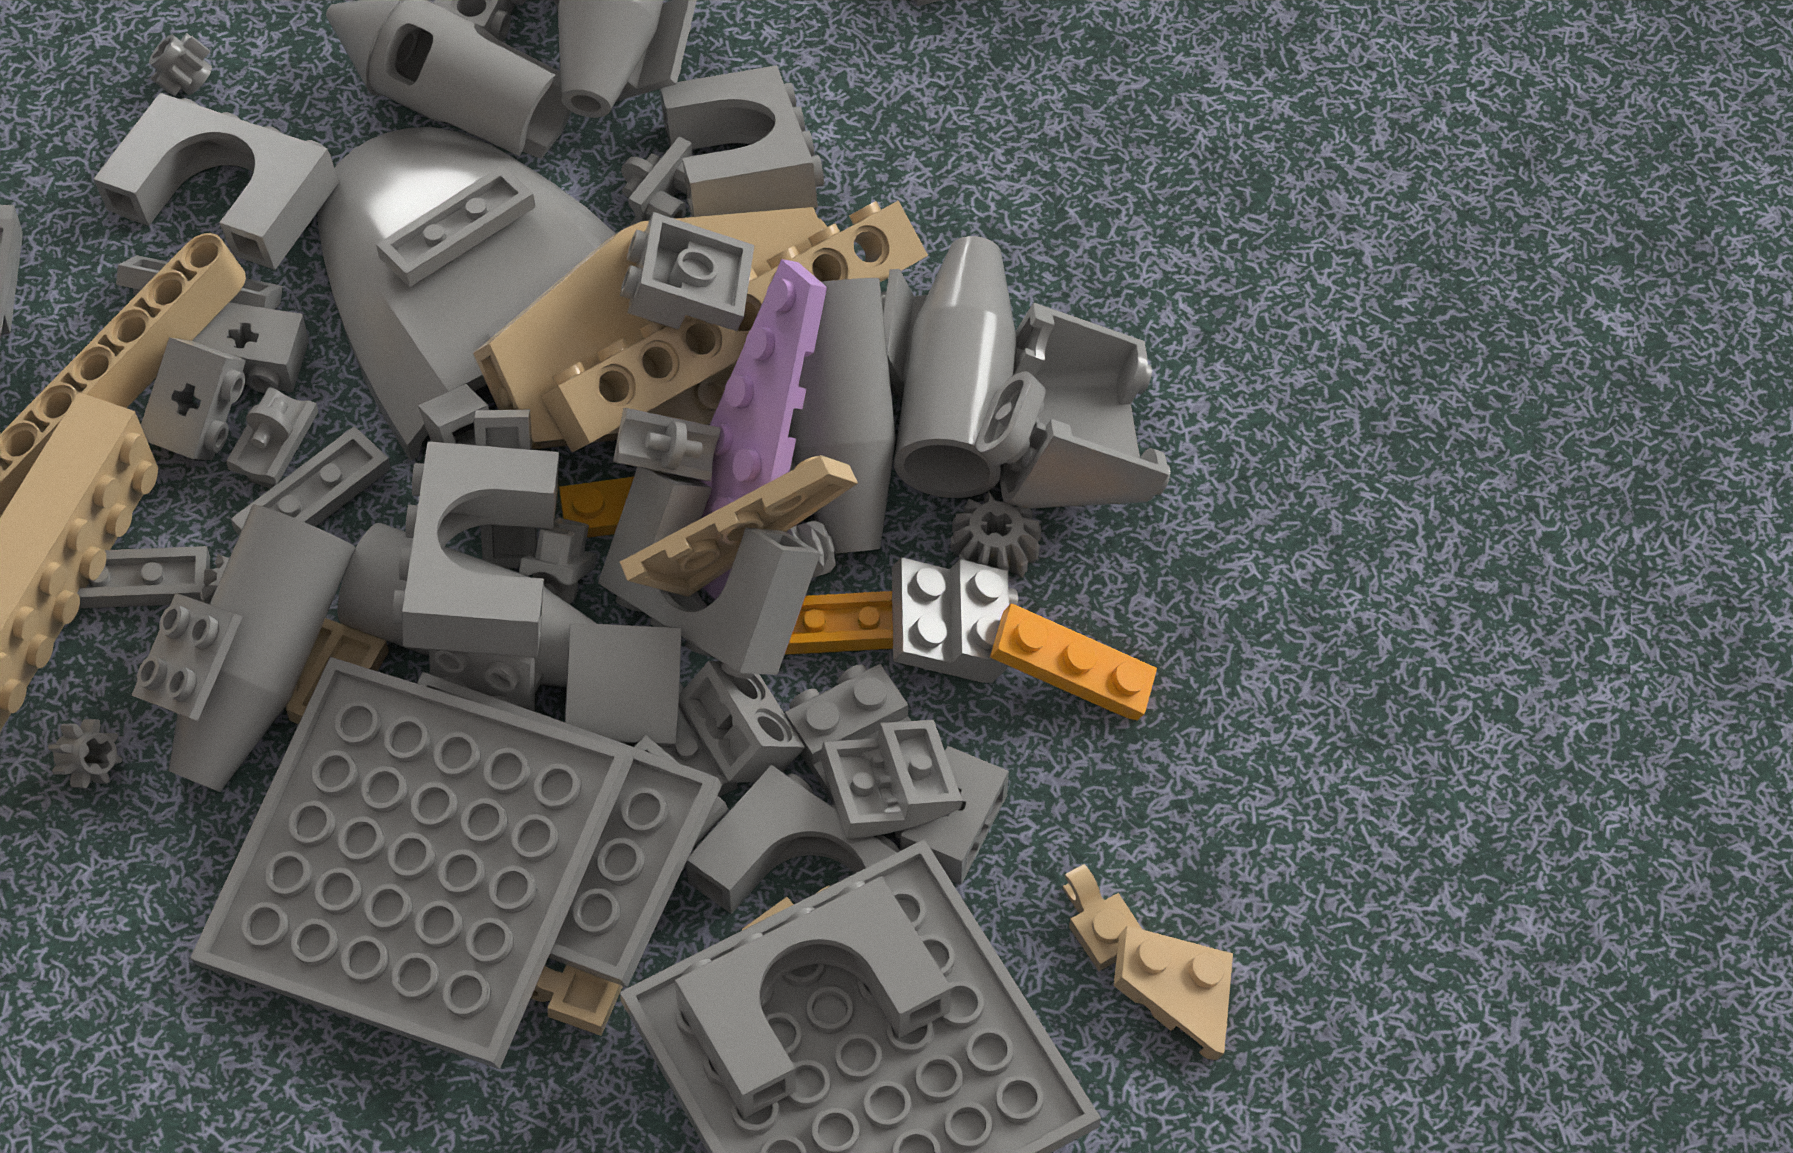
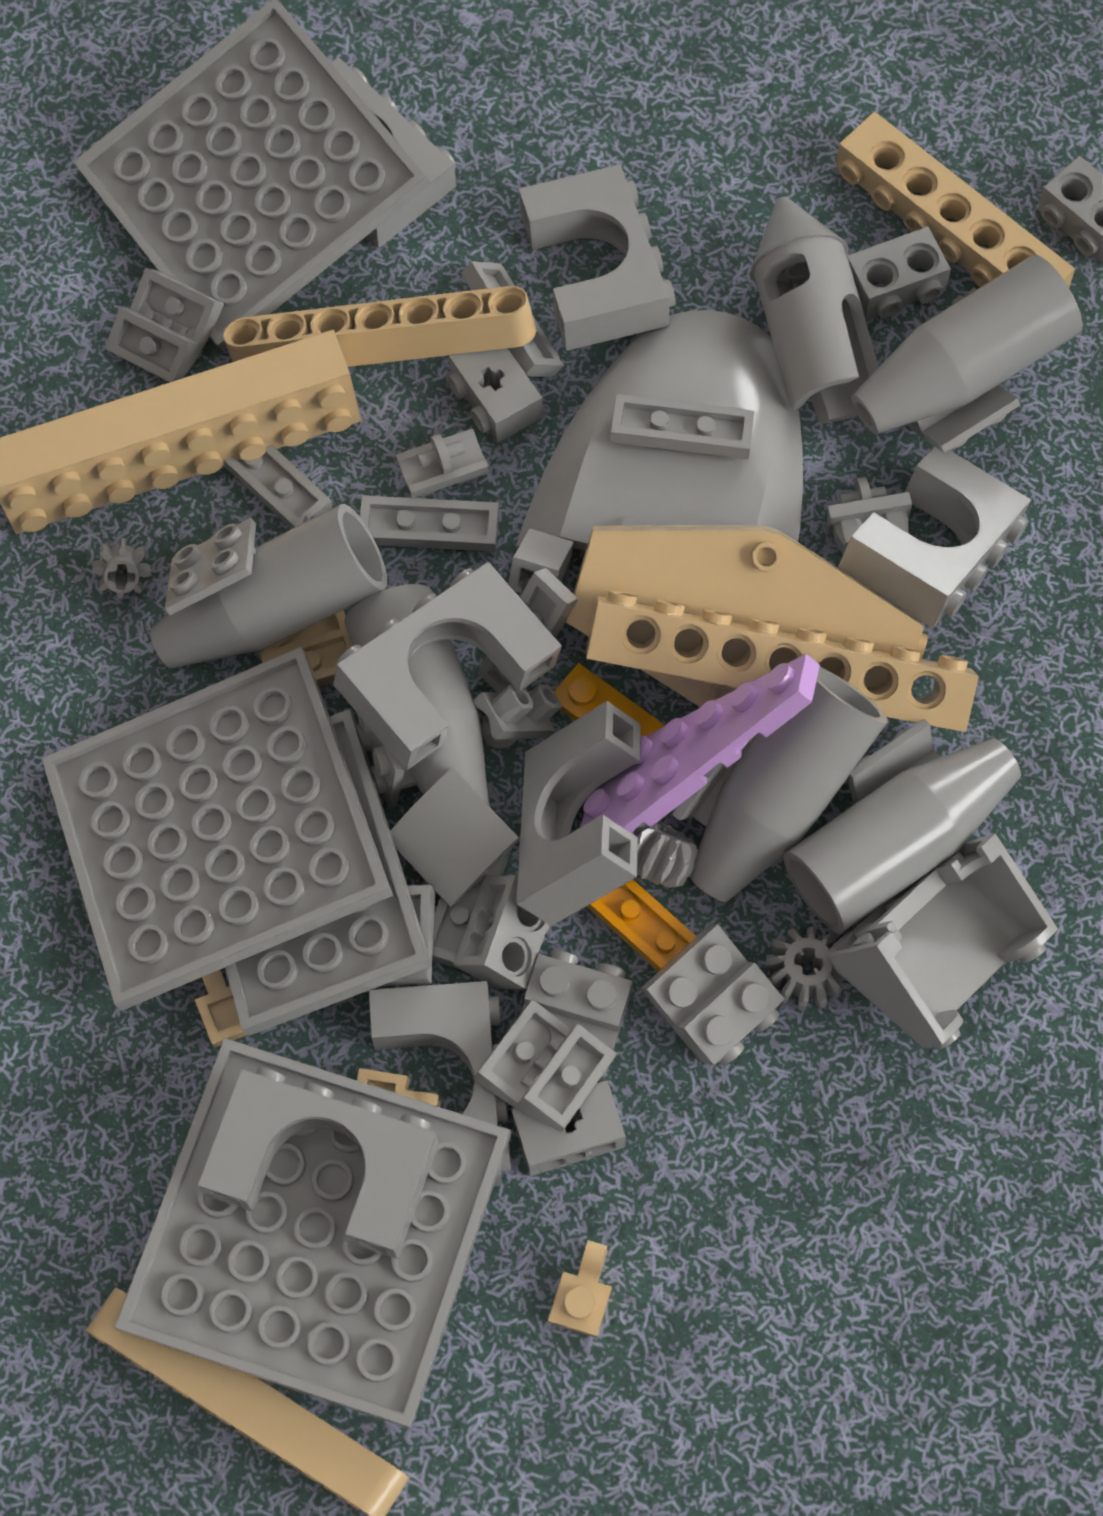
camera: 50 degrees right, 10 degrees up
(173, 418) = (417, 393): light grey brick -> none
(180, 64) = (660, 155): light grey gear -> none
(666, 444) = (629, 706): light grey hips -> none
(687, 273) = (762, 602): light grey plate -> none
(709, 545) = (584, 803): tan wing -> none
(1011, 419) = (874, 903): light grey plate -> none
(1073, 662) = (754, 1105): light orange plate -> none
(1178, 983) = (578, 1387): tan wing -> none

